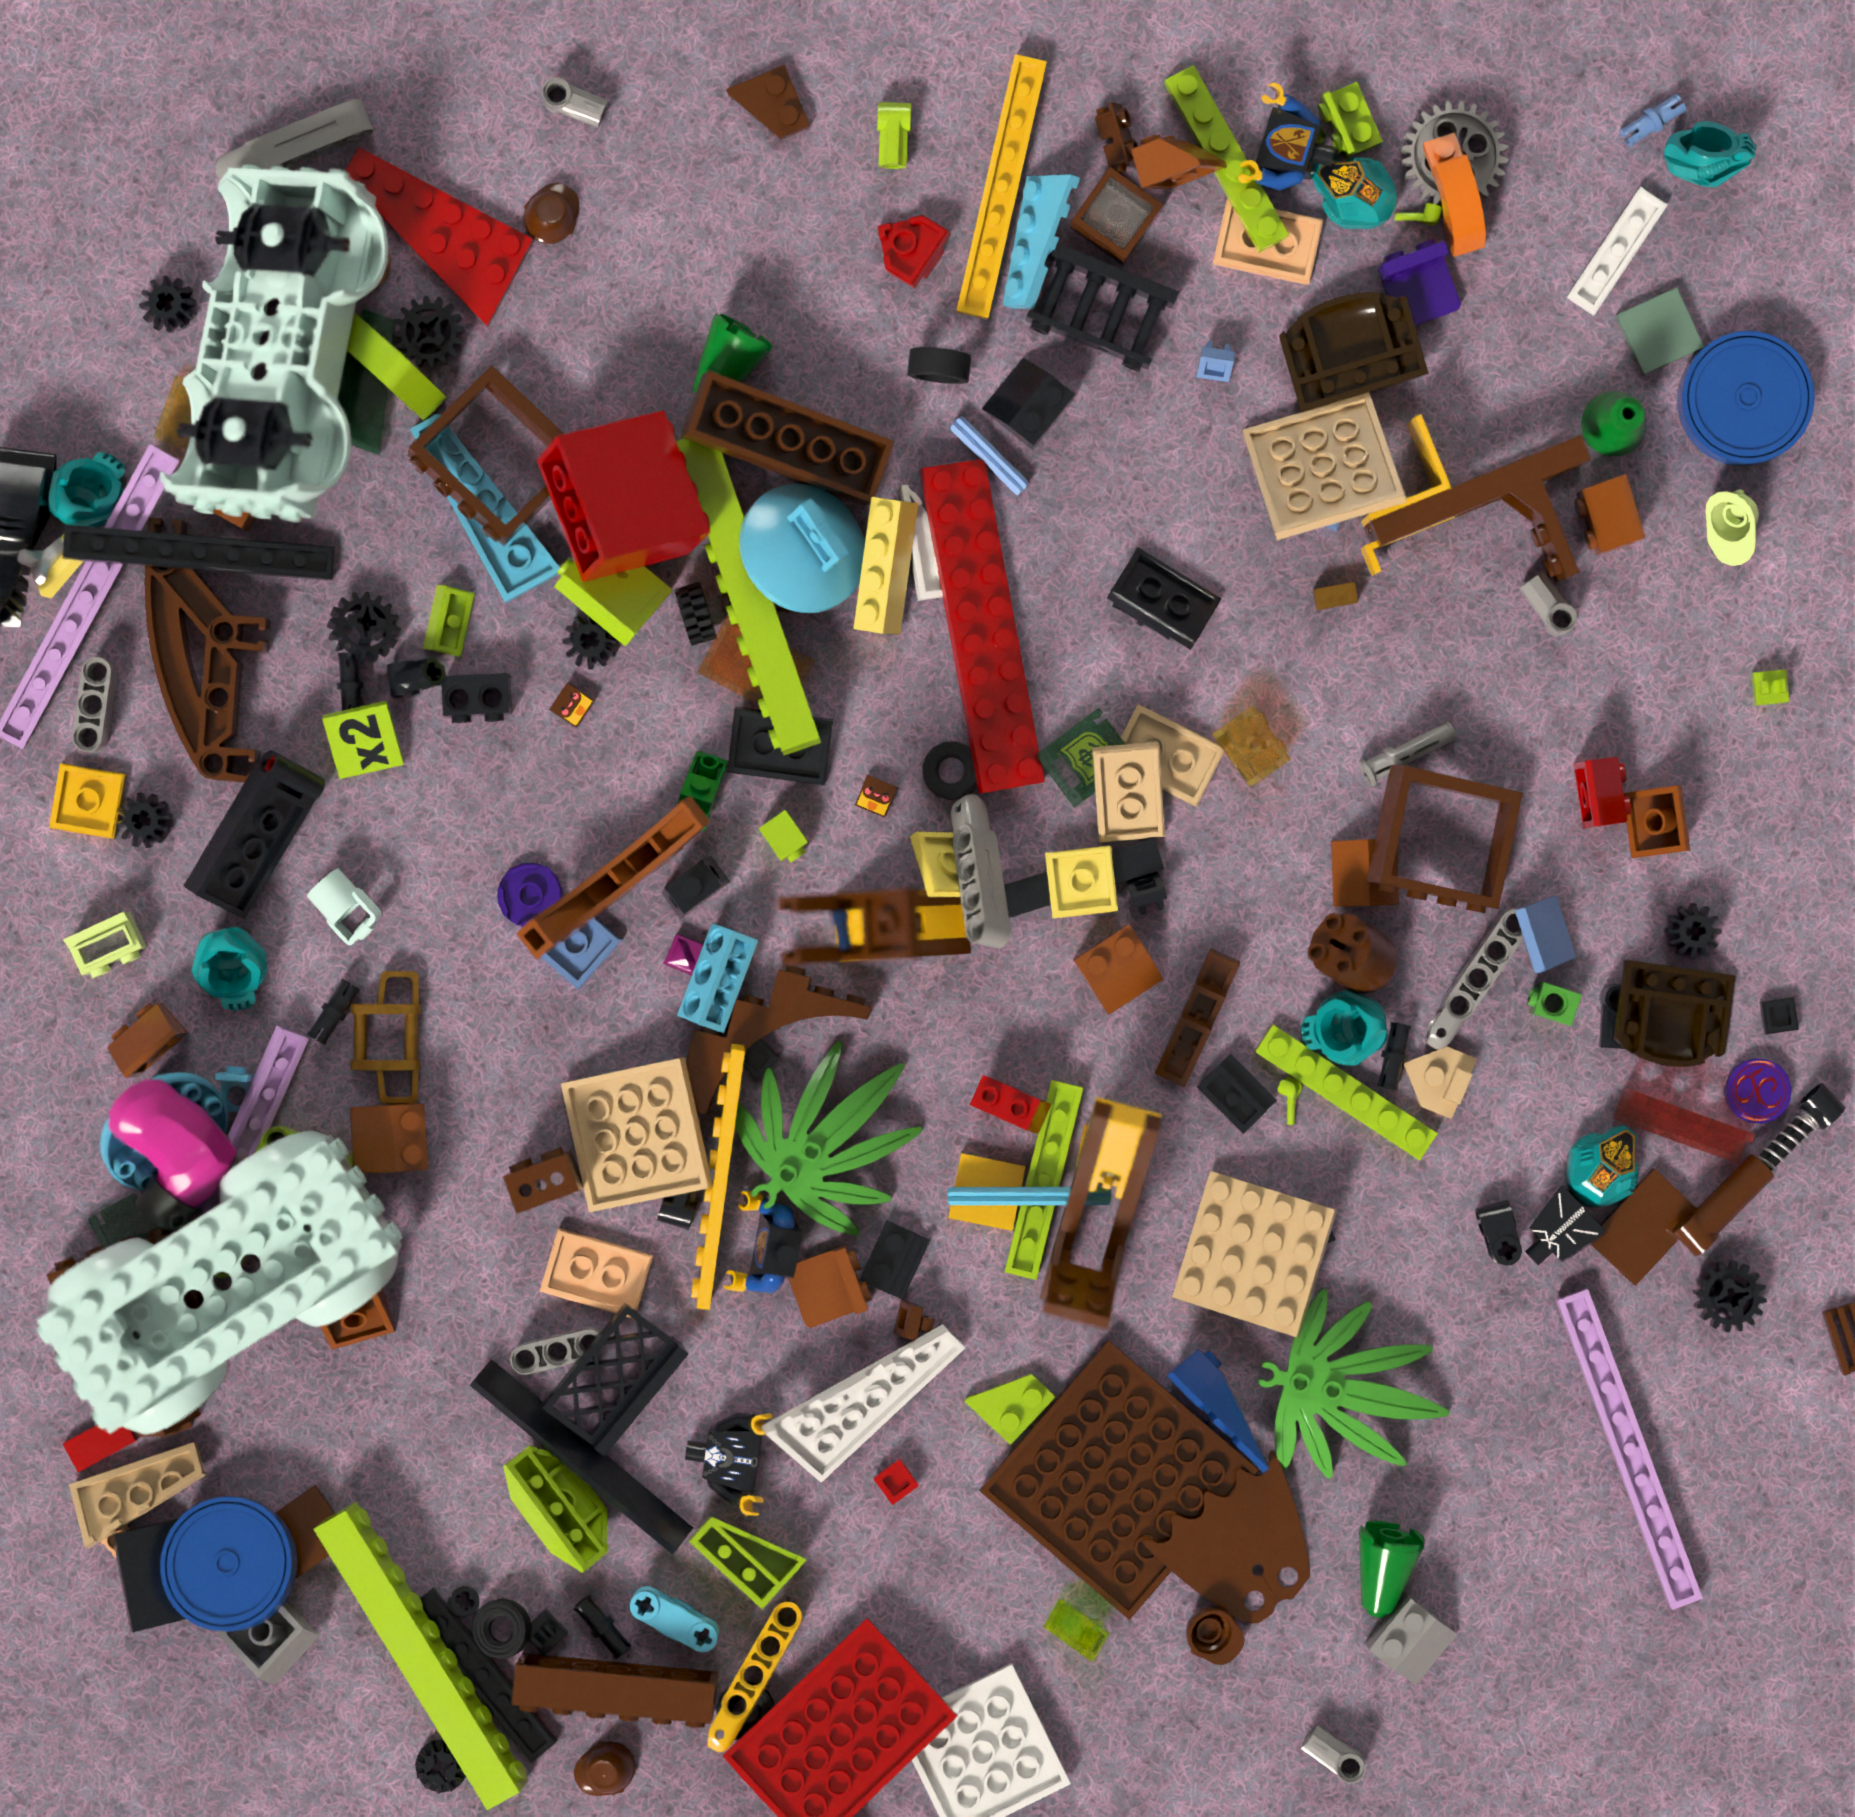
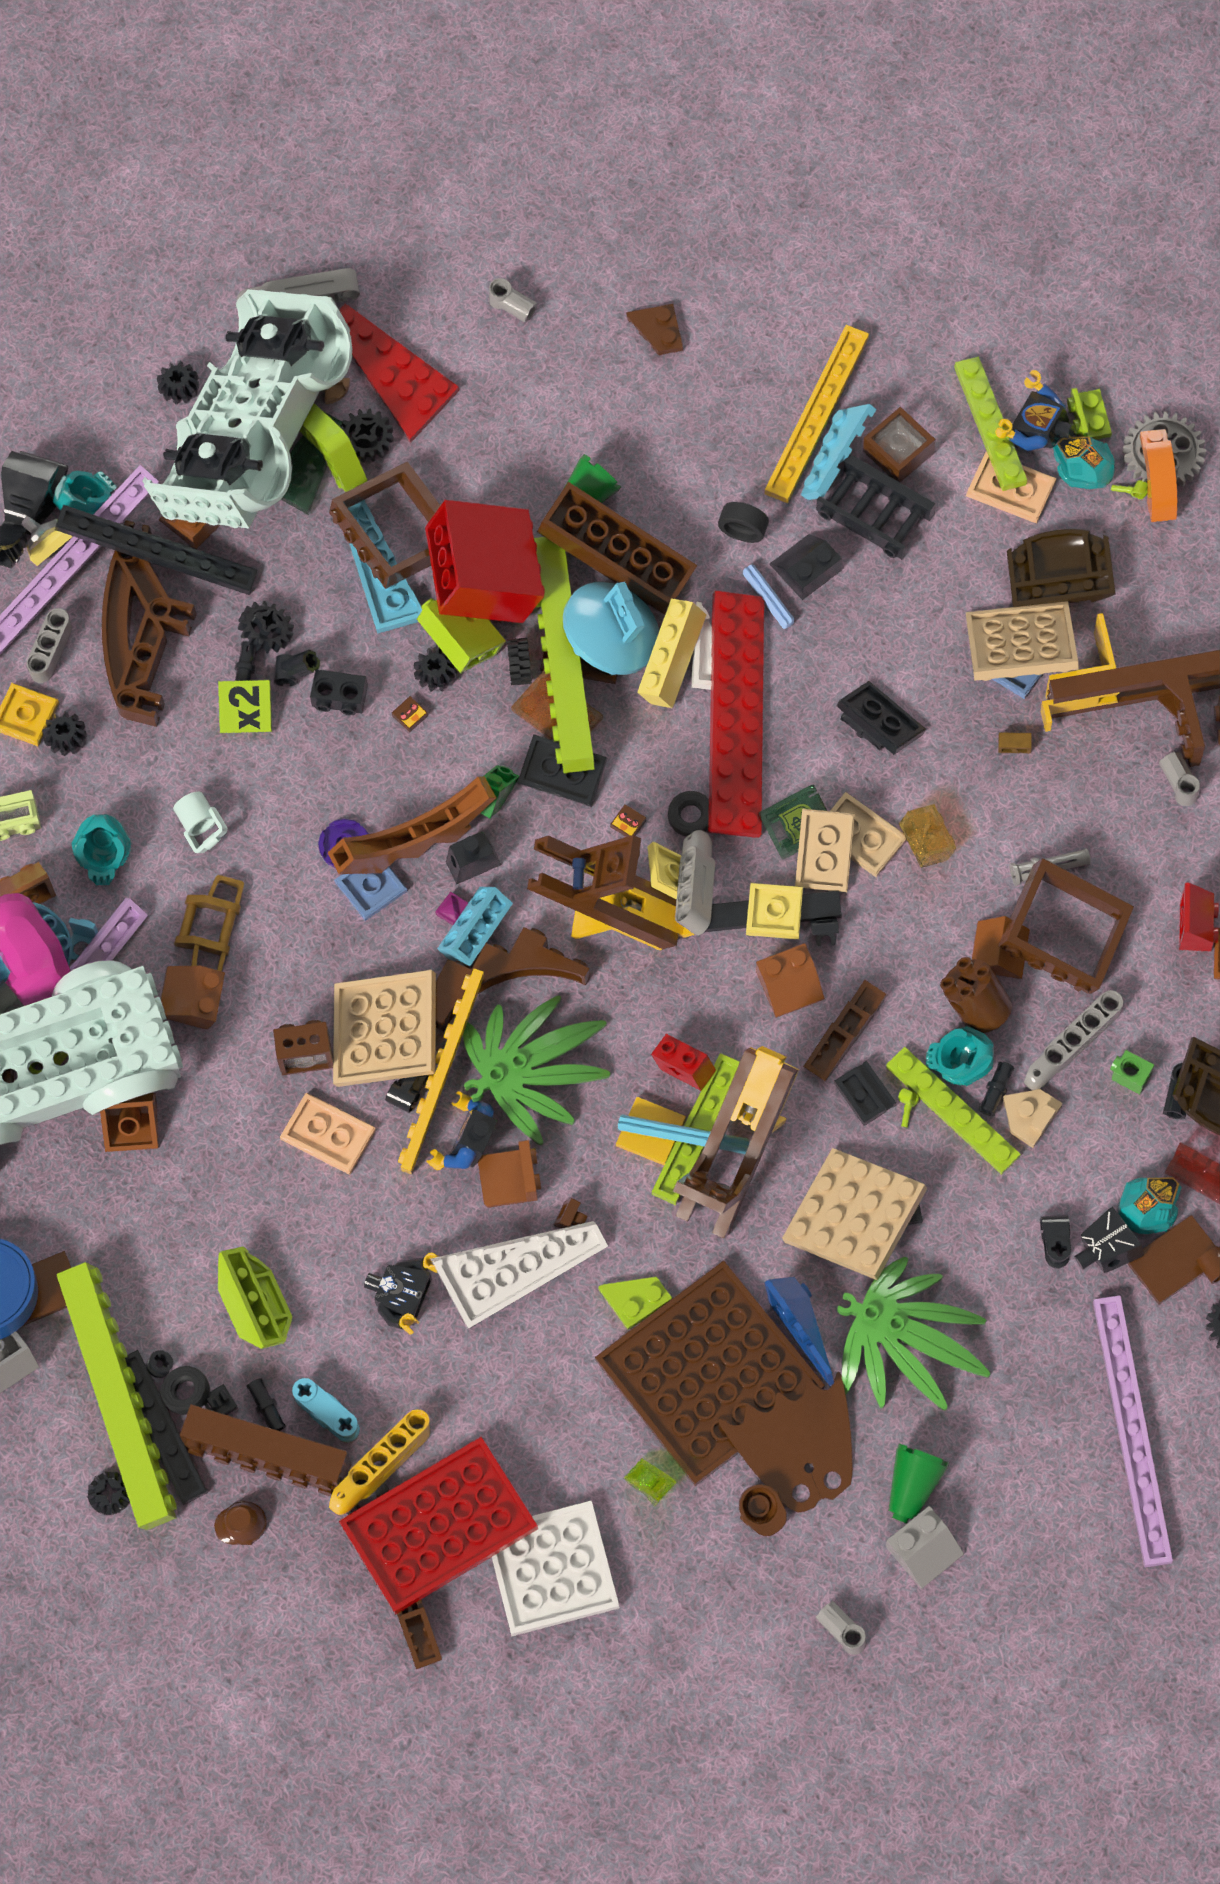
camera: 15 degrees right, 20 degrees down
(176, 410) = (158, 466): clear yellow plate -> none
(255, 833) = (136, 763): black hinge -> none
(333, 1011) = (172, 898): black pin -> none
(448, 620) = (332, 637): lime slope -> none
(541, 1350) = (272, 1176): light grey beam -> none
(551, 213) = (477, 374): reddish brown hat -> none
(581, 1457) = (282, 1269): black tile -> none
(639, 1390) = (337, 1227): black fence -> none
(746, 1560) = (394, 1372): lime wedge -> none
(759, 1058) = (492, 995): black tile -> none
(784, 837) = (550, 826): lime brick -> none
(894, 126) = (744, 361): lime piece -> none
(894, 1259) = (566, 1168): black plate -> none
(896, 1481) = (529, 1338): red plate -> none
(912, 248) = (741, 442): red plate -> none
(1116, 125) = (911, 386): reddish brown hinge -> none
(1172, 162) = (948, 414): dark orange slope -> none
(1215, 363) = (954, 561): medium blue tile -> none
(1422, 279) = (1125, 530): dark purple bracket -> none
(1545, 934) = (1133, 1015): medium blue tile -> none

